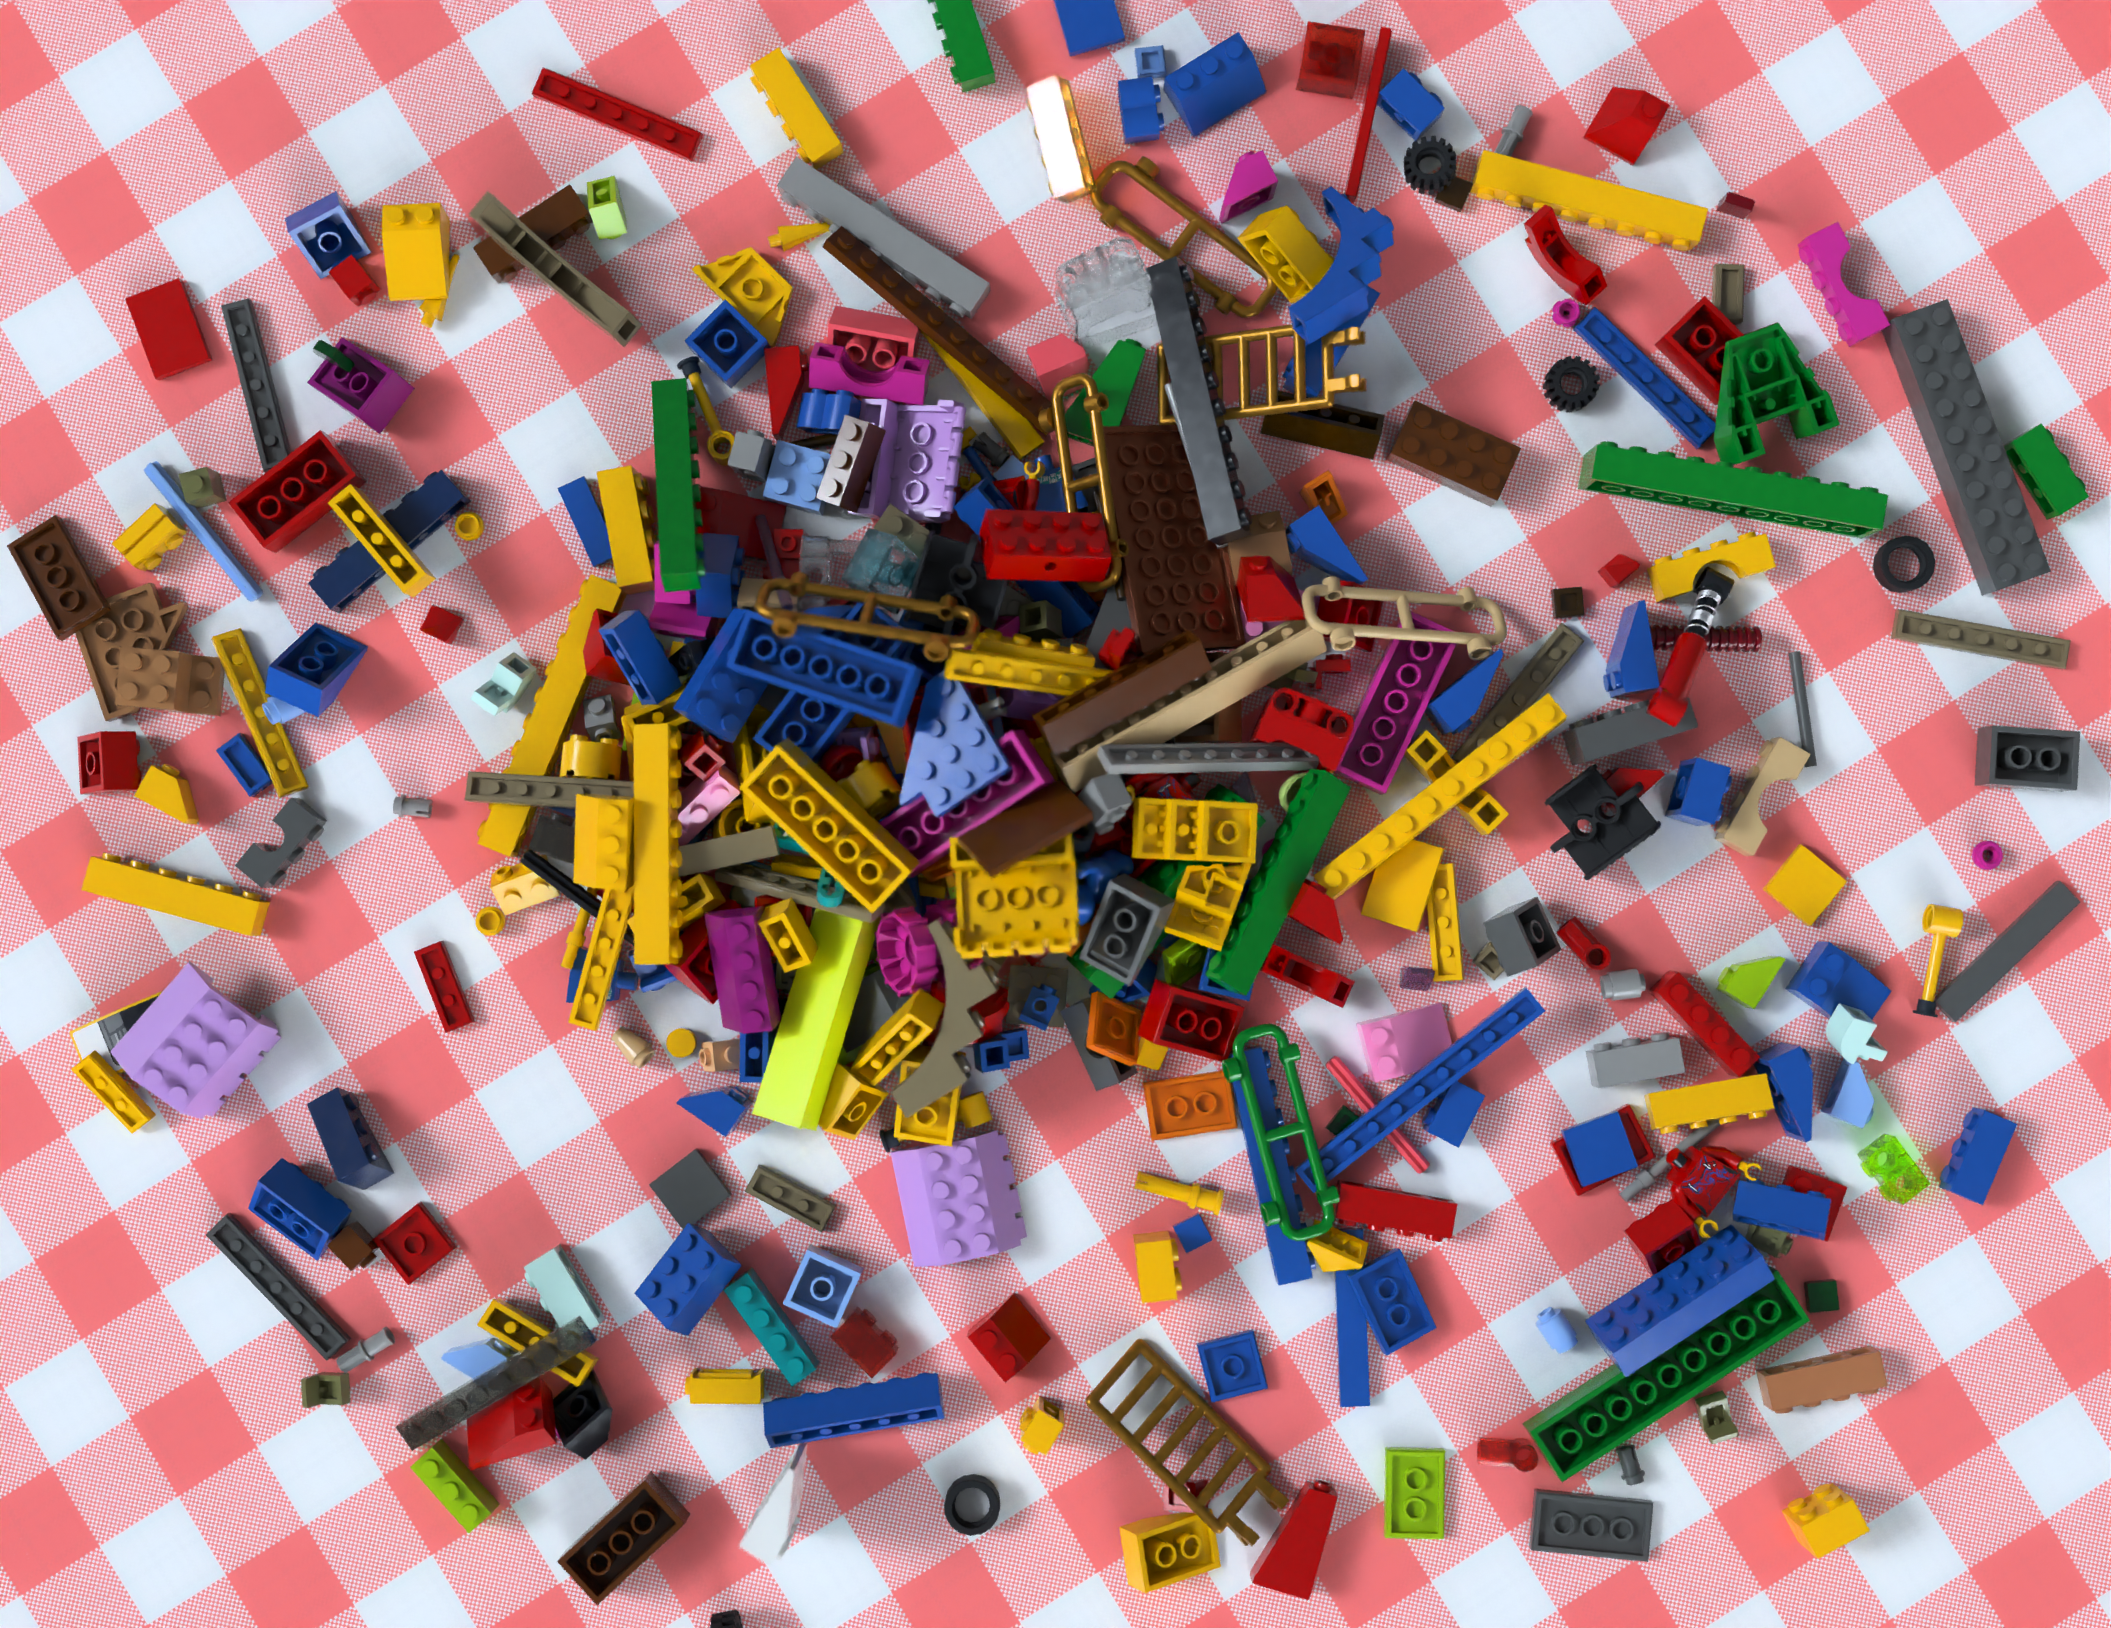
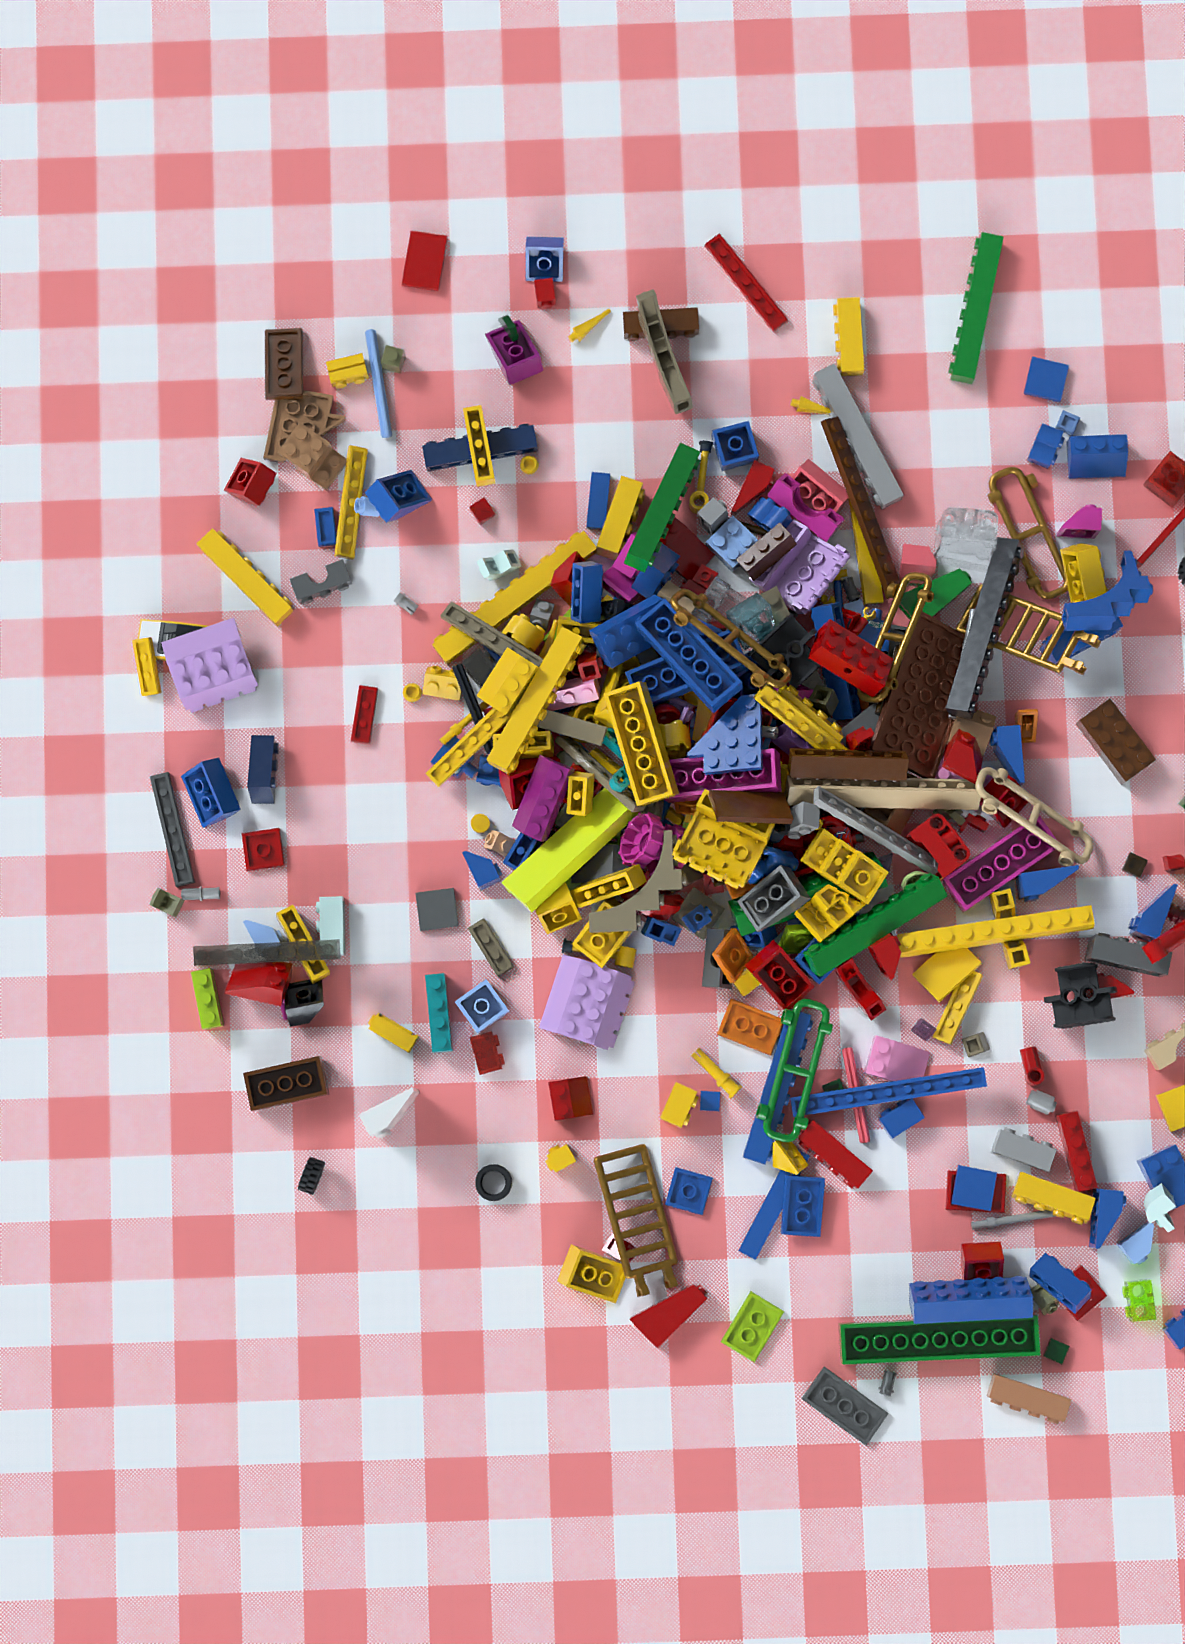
camera: 35 degrees right, 5 degrees down
(169, 793) = (274, 517): yellow slope -> none
(256, 382) = (455, 320): dark grey tile -> none
(296, 491) = (444, 391): red brick -> none
(354, 1246) = (229, 831): reddish brown brick -> none
(416, 251) = (589, 296): yellow slope -> none
(606, 208) = (710, 331): lime slope -> none
(633, 1047) = (451, 810): tan cone -> none
(687, 1279) = (408, 957): blue brick -> none
(751, 289) = (766, 422): yellow wing -> none
(773, 559) = (692, 578): clear purple bar -> none
(853, 1410) = (458, 1087): blue brick -> none
(1061, 139) = (991, 437): brick -> none
(1330, 428) = (1051, 685): dark brown brick -> none
(1504, 1451) = (817, 1332): clear red piece -> none
(1522, 936) = (998, 1038): dark grey brick -> none
(1525, 688) = (1091, 896): dark tan tile -> none
(1556, 1329) = (889, 1278): light blue brick -> none
(1699, 792) = (1148, 1015): blue brick -> none
(1703, 1179) = (1024, 1240): red torso -> none
(1716, 1417) = (953, 1383): olive bracket -> none
(1749, 980) = (1116, 1141): lime slope -> none
(1825, 1520) = (983, 1478): yellow brick -> none

